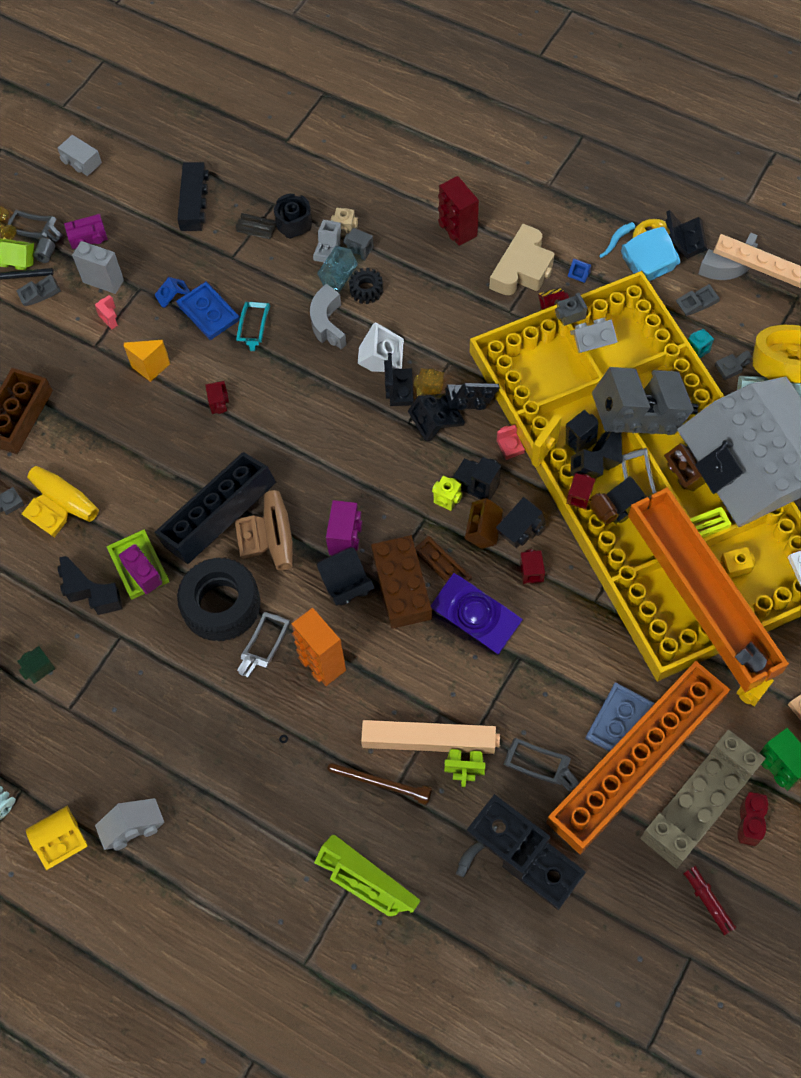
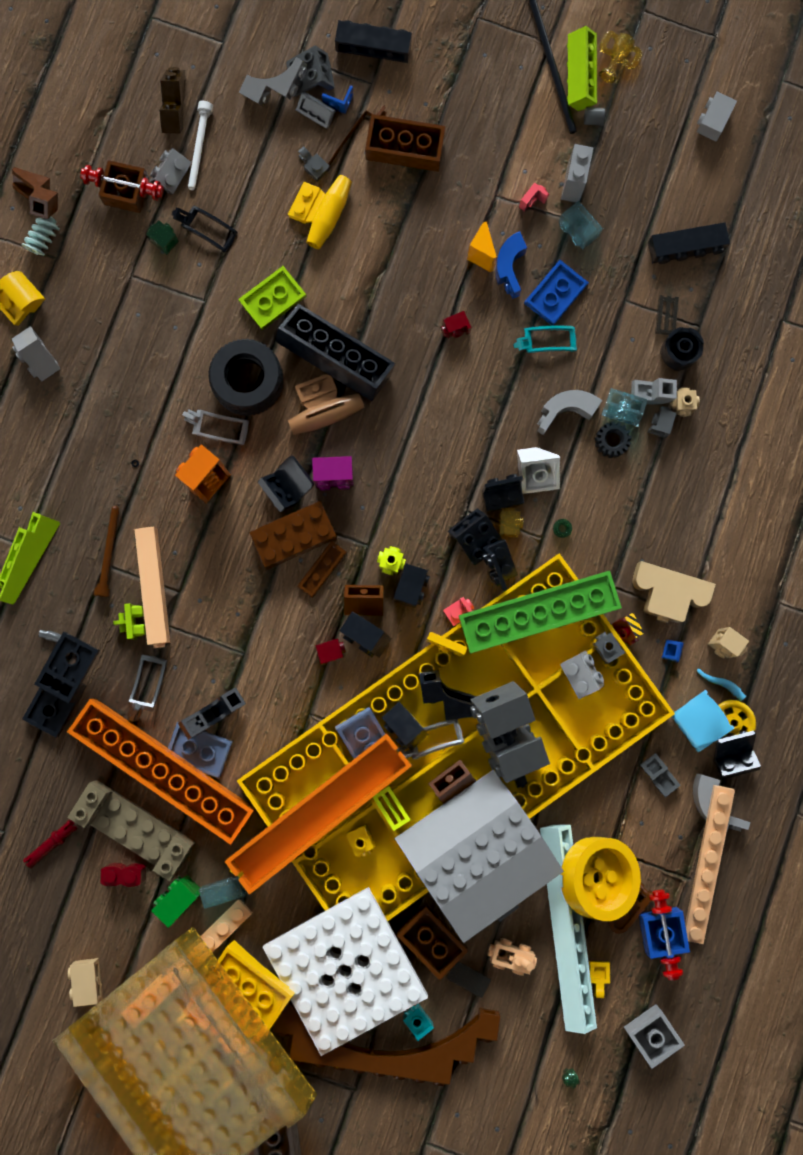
camera: 70 degrees right, 20 degrees up
(22, 635) = (187, 220): none -> black sword
(34, 293) = (547, 126): dark grey slope -> none
(45, 233) = (622, 111): dark grey sword -> none
(76, 587) = (243, 251): black arch -> none
(87, 230) = (623, 150): magenta brick -> none
(140, 568) = (260, 301): magenta brick -> none
(147, 277) = (580, 225): none -> clear light blue brick
(169, 290) = (569, 249): blue bracket -> none
(174, 345) = (510, 251): none -> blue arch
(443, 336) = (566, 524): none -> clear green plate
(458, 210) = (713, 514): dark red piece -> none
(476, 613) = (275, 607): dark purple slope -> none
(526, 361) = (539, 612): none -> bright green plate
(580, 222) = (728, 643): none -> tan brick
(580, 490) = (403, 685): dark red brick -> none
(580, 691) = (212, 713): none -> black arch
(582, 432) = (471, 678): black brick -> none
(603, 508) = (387, 708): reddish brown brick -> none
(624, 541) = (360, 731): none -> sand blue tile
(701, 342) = (603, 781): teal brick -> none
(719, 468) = (445, 814): black hat -> none
(732, 366) = (587, 816): dark grey plate -> none
(752, 657) = (252, 859): black piece -> none
(779, 712) = (221, 891): none -> clear light blue brick

